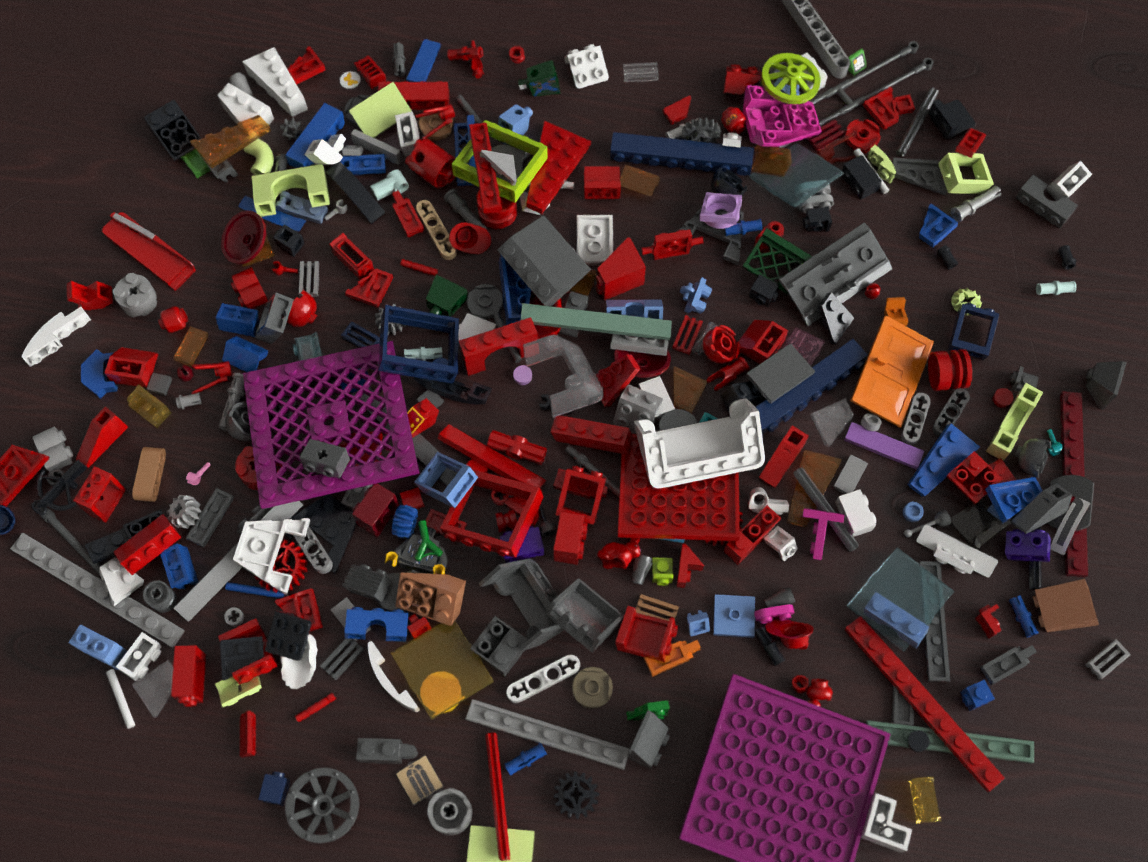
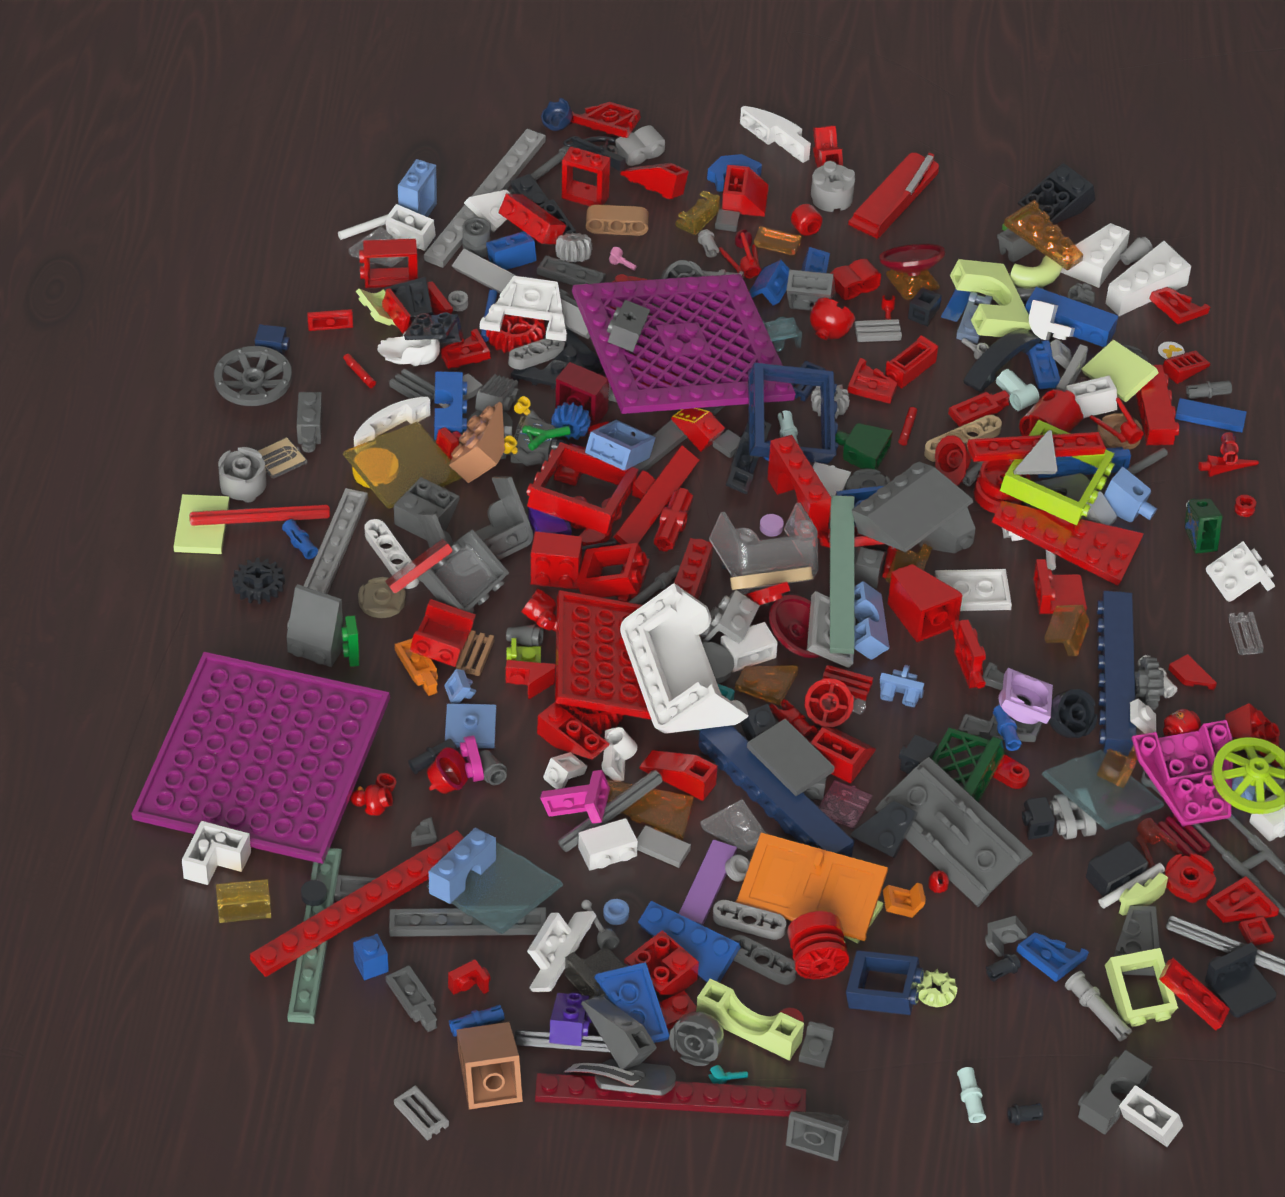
camera: 85 degrees right, 20 degrees down
(585, 649) = (419, 566): none -> tile
(612, 388) = (771, 578): none -> tan beam
(844, 655) = (424, 833): none -> dark grey tile
(923, 248) = (1003, 932): none -> dark grey bracket

